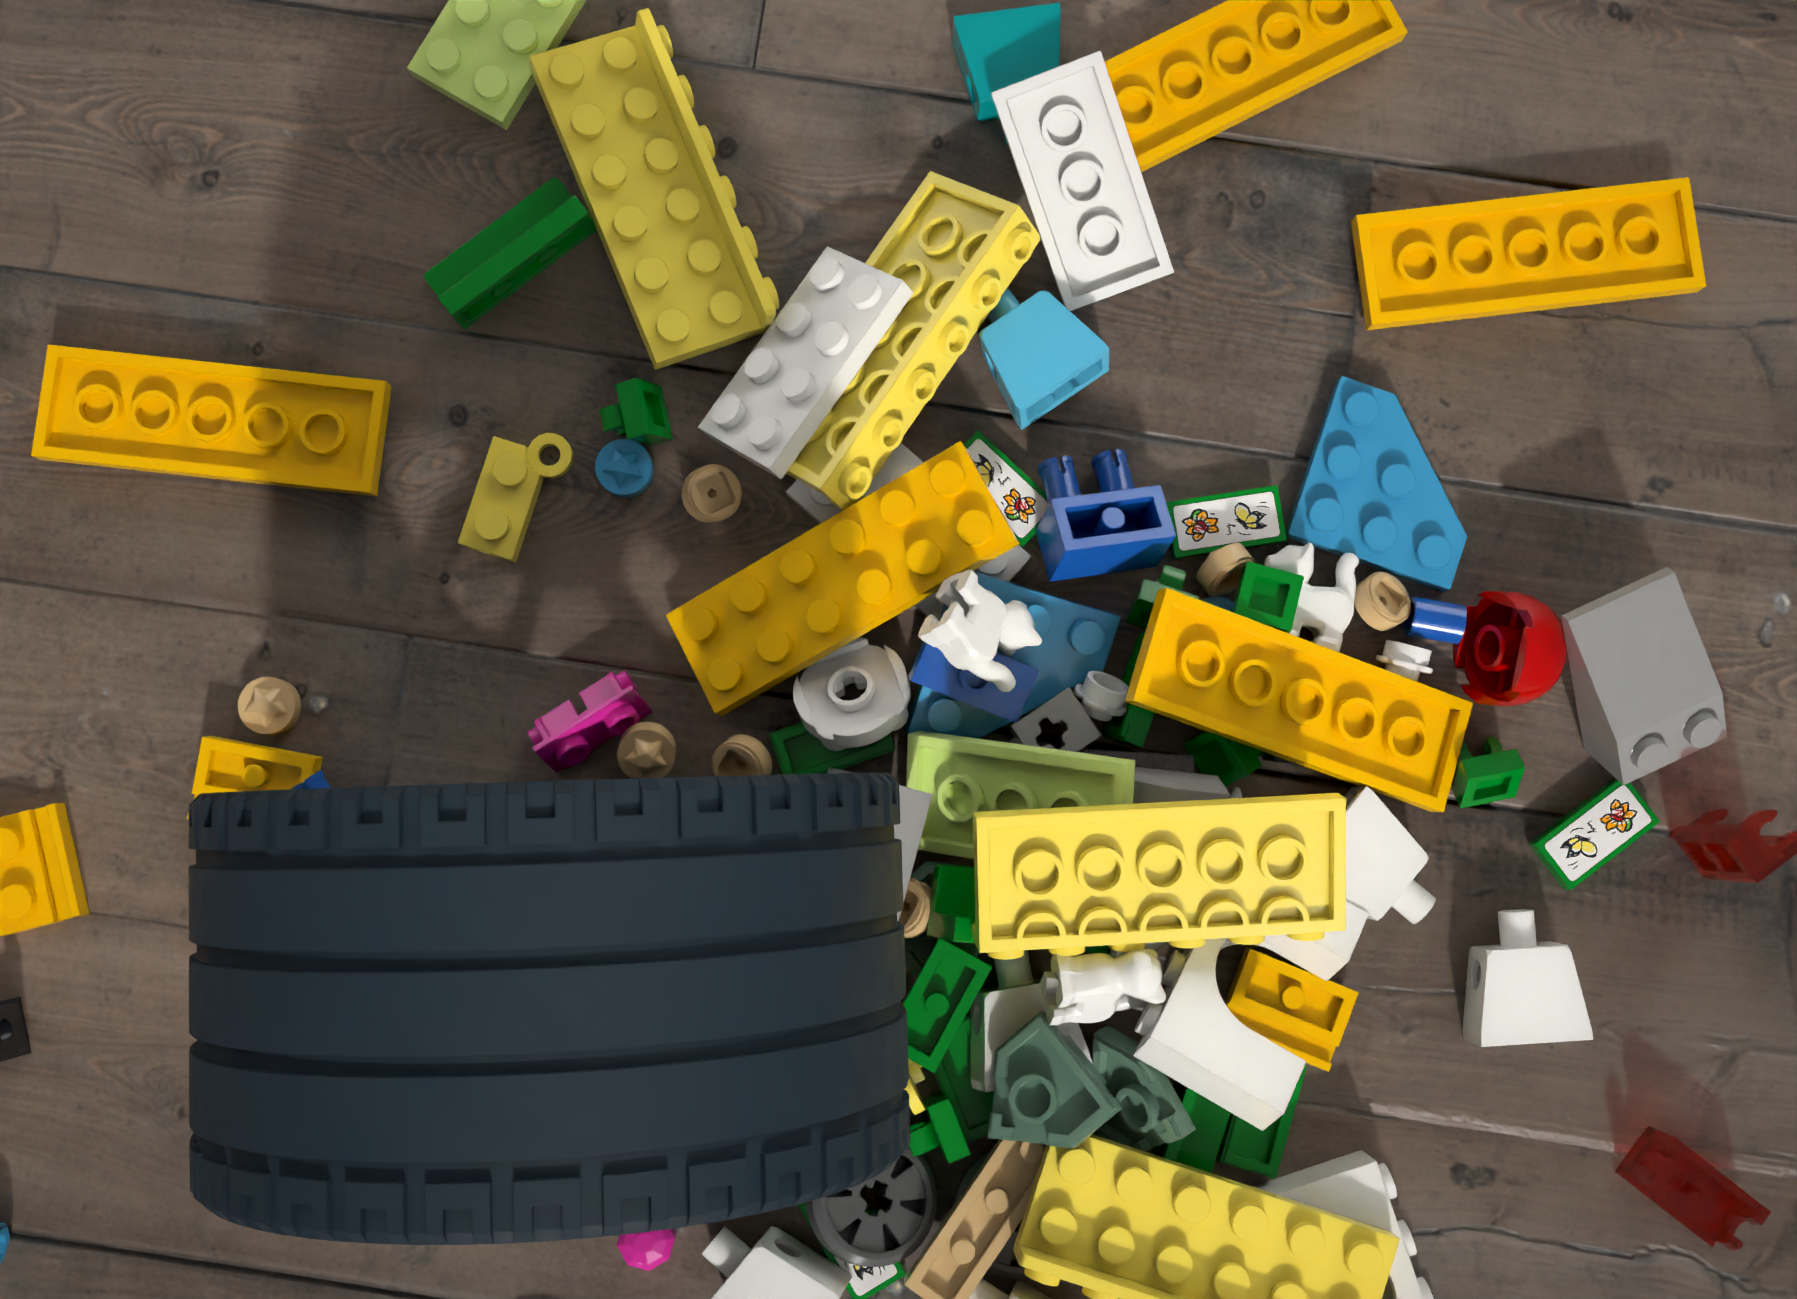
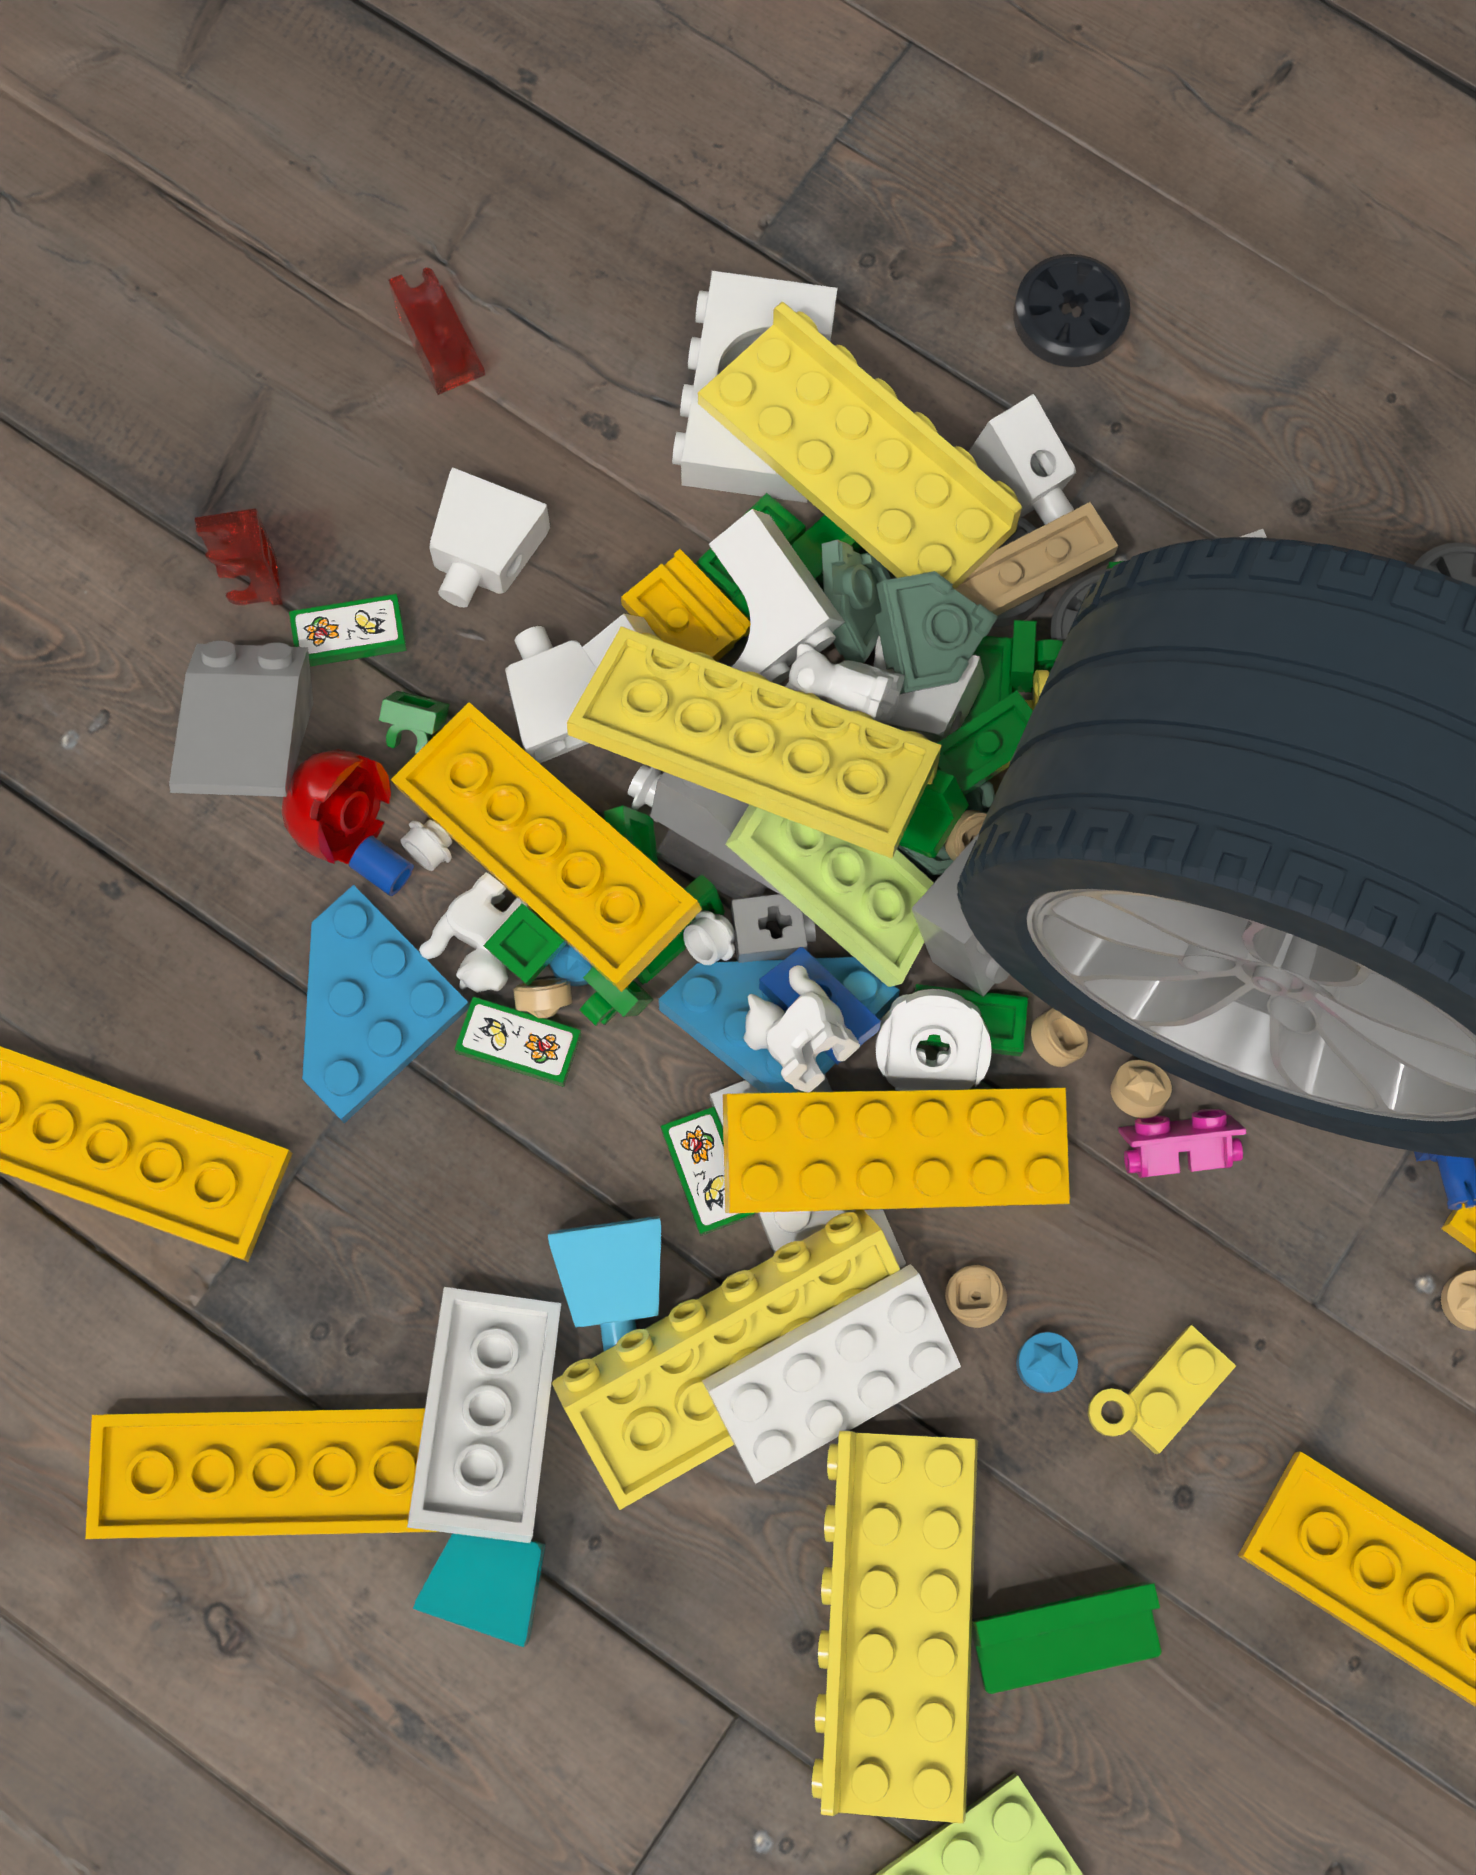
camera: 155 degrees left, 10 degrees down
(640, 413) = (1010, 1404): green tile -> none
(1104, 530) = (636, 1075): blue brick -> none
(1382, 601) = (418, 903): tan tile -> none

